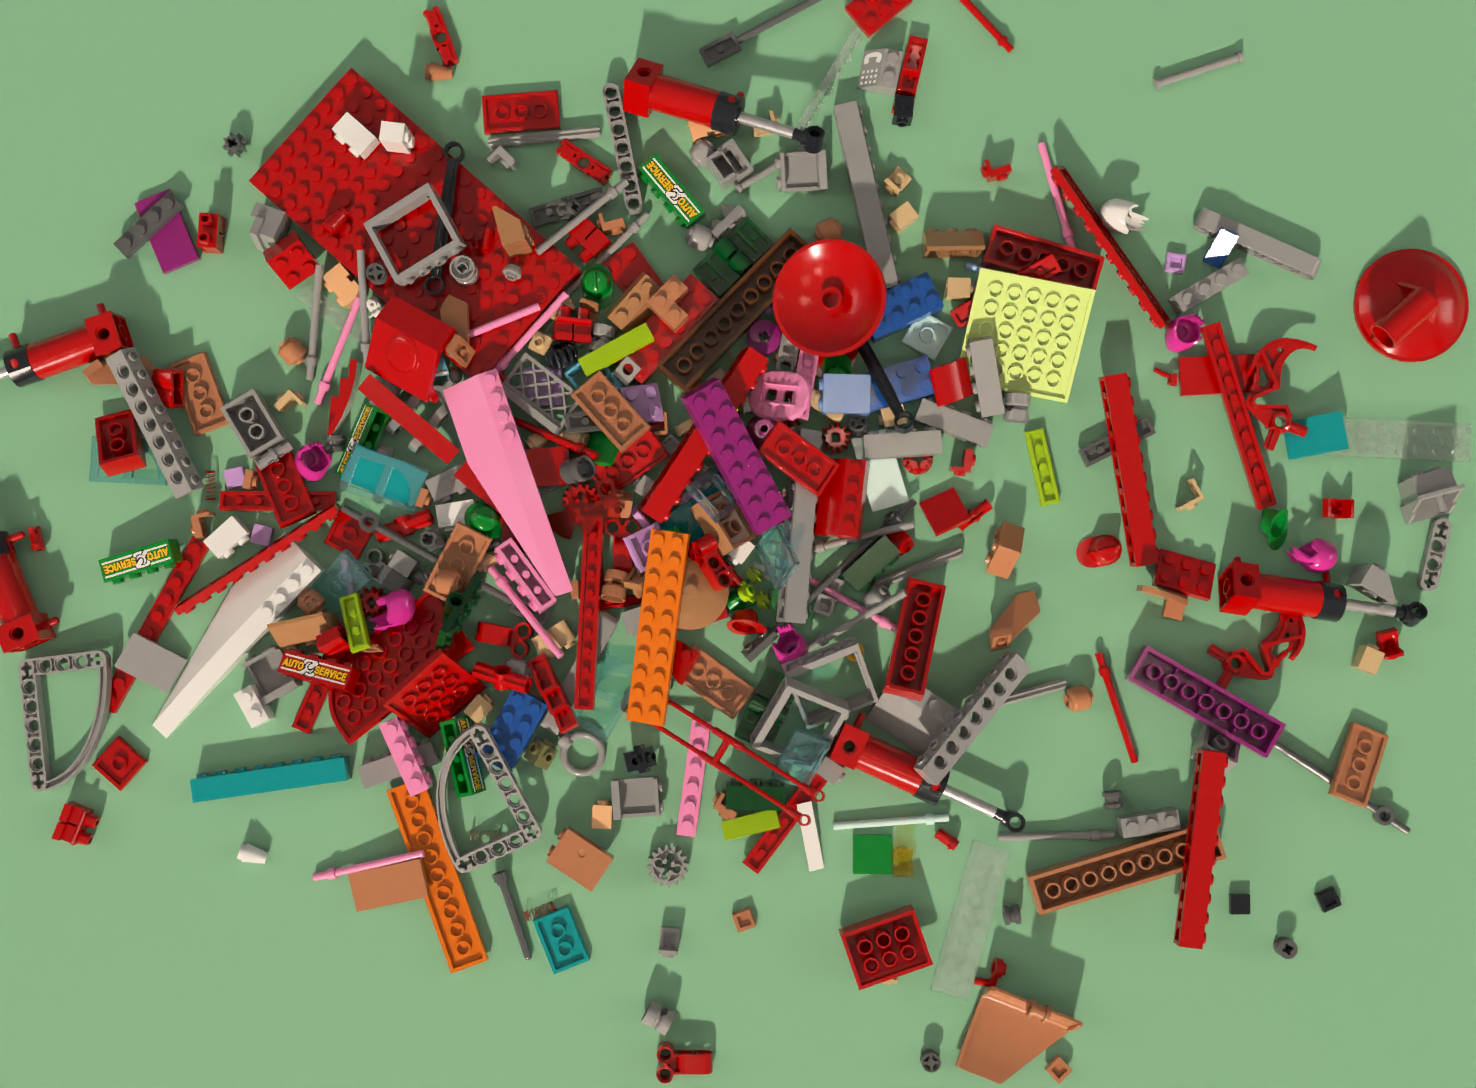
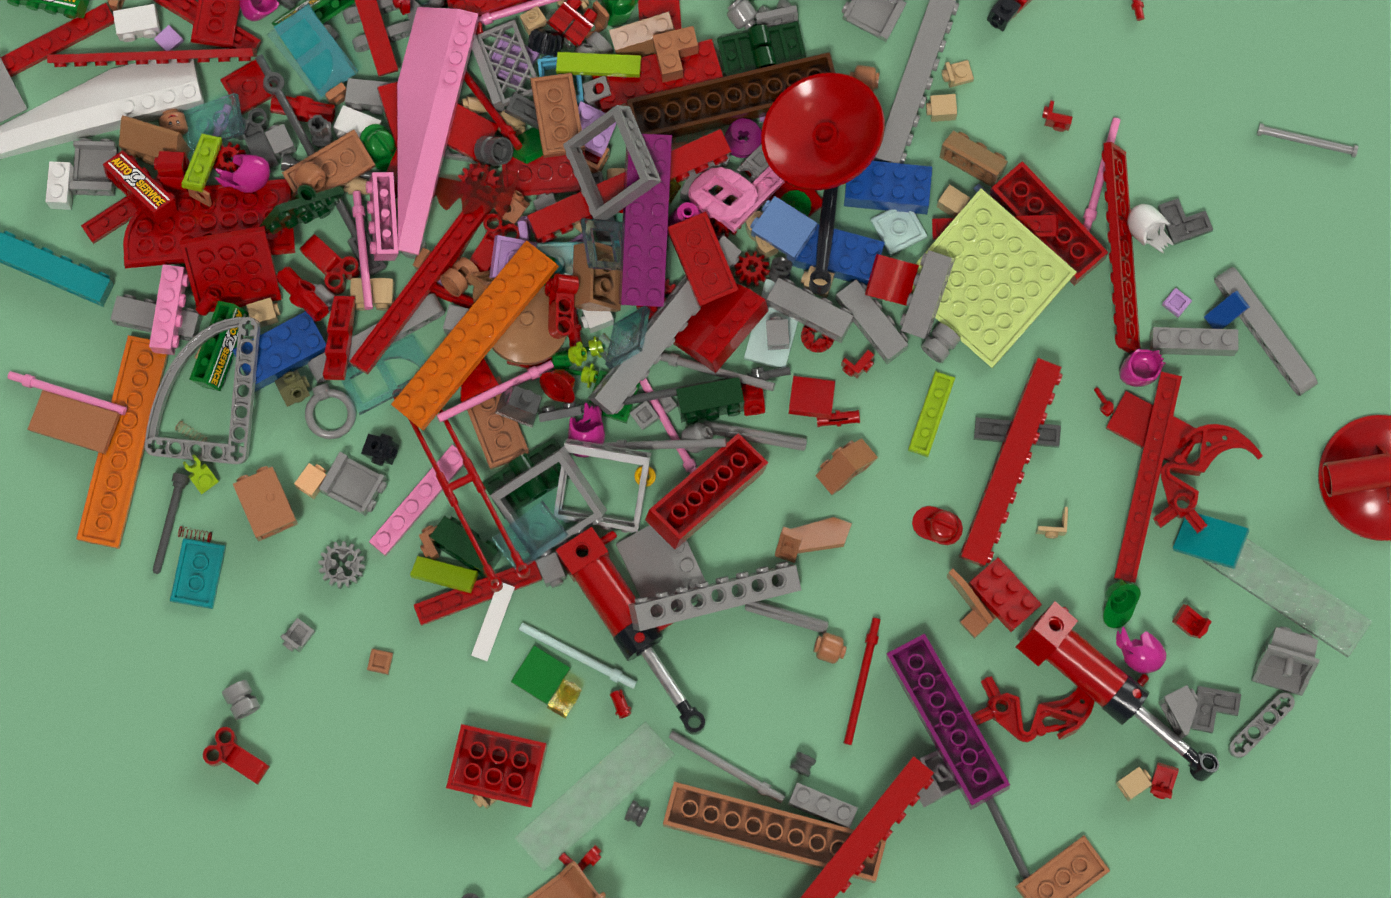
camera: 35 degrees right, 10 degrees down
(431, 725) = (209, 298): none -> red pin
(515, 865) = (201, 476): none -> lime plate
(699, 408) = (639, 154): none -> light grey window
(719, 626) = (532, 373): none -> bright pink bar
(727, 659) = (519, 405): none -> dark grey torso
(888, 478) = (777, 333): none -> light grey brick
(1147, 198) = (1183, 227): none -> flat silver plate
(1390, 558) = (1209, 703): none -> flat silver plate

